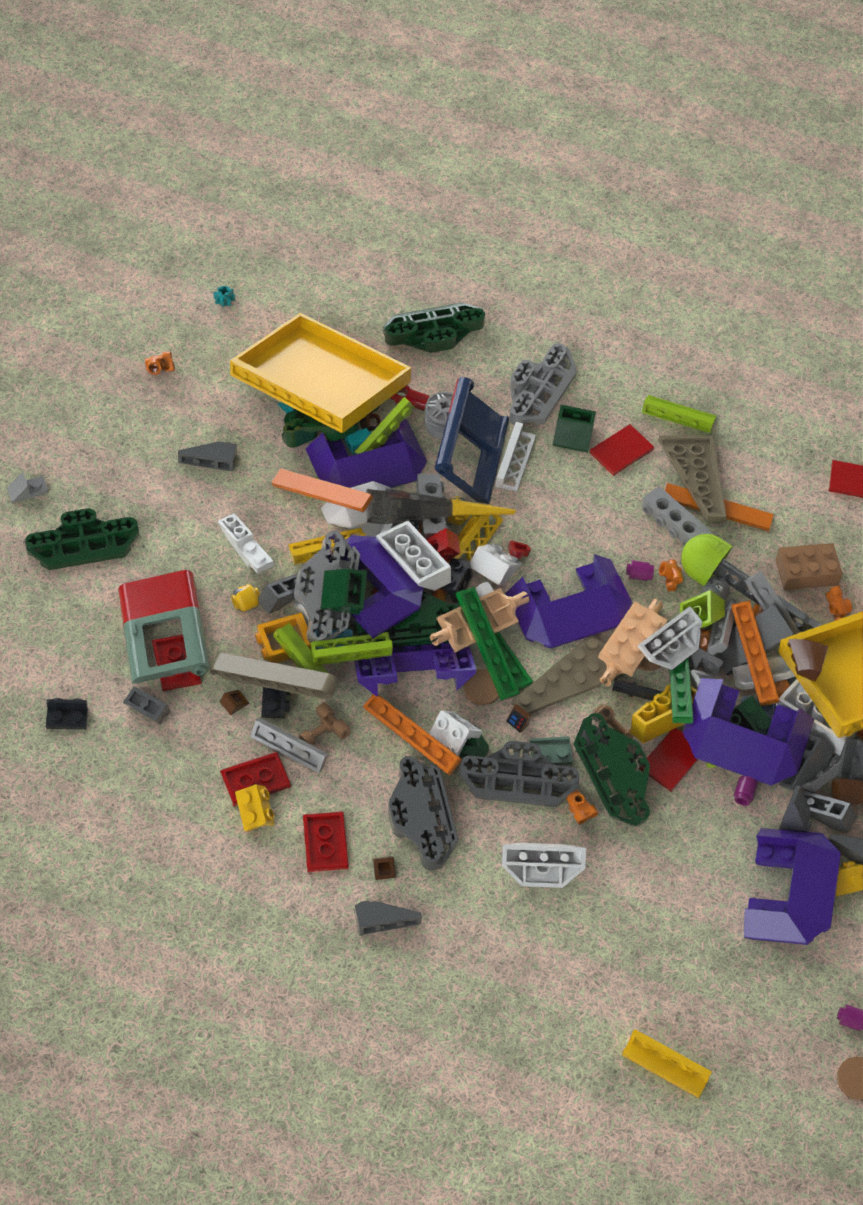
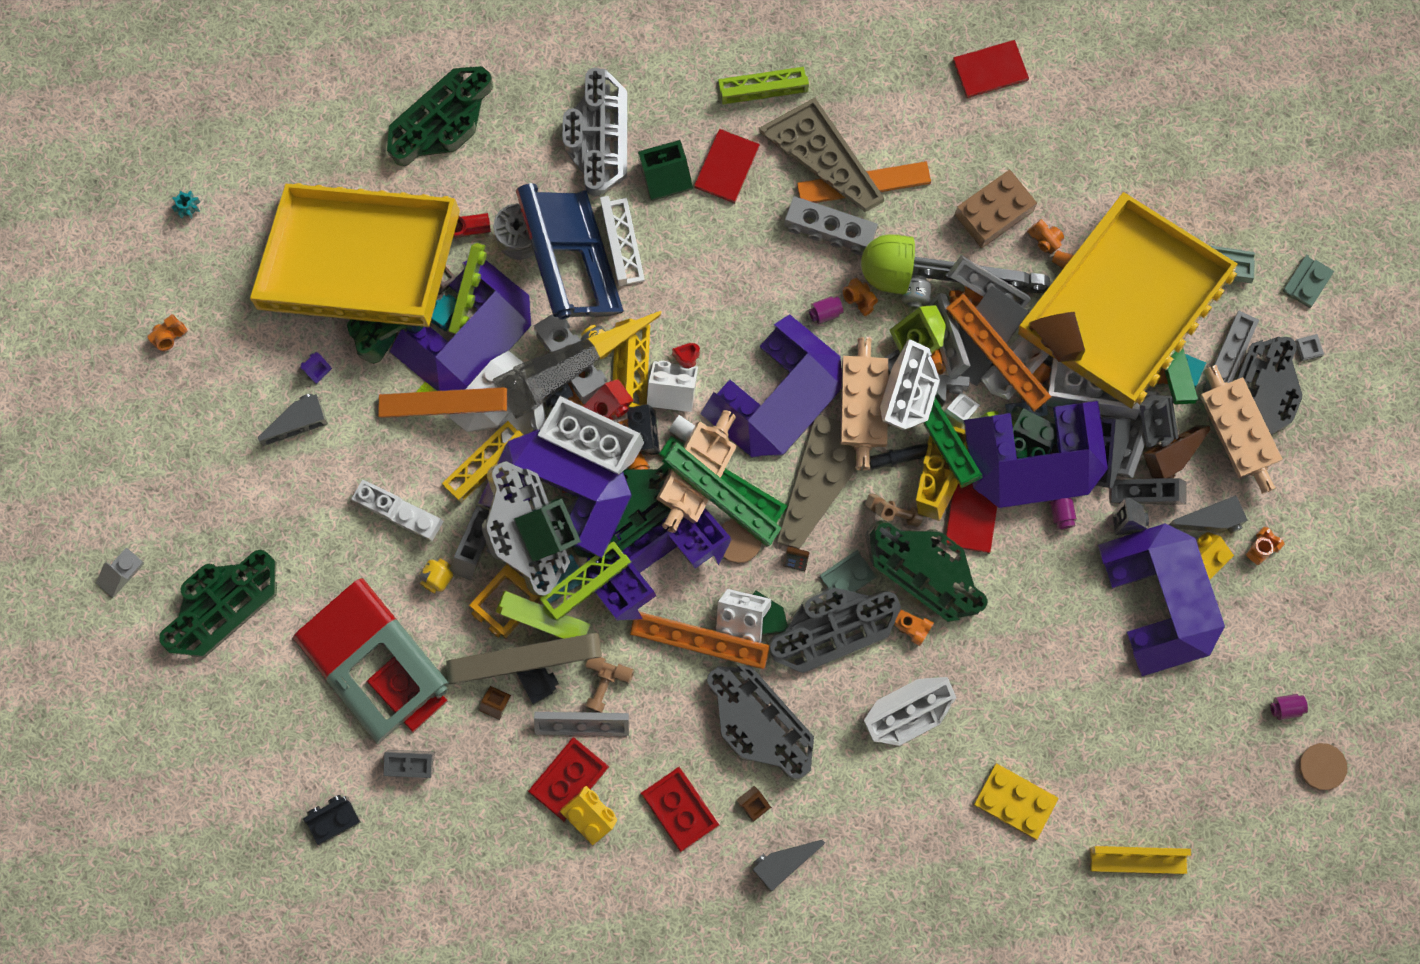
camera: 25 degrees left, 20 degrees up
(247, 431) = (315, 367): none -> dark purple tile
(590, 972) = (1016, 801): none -> yellow plate

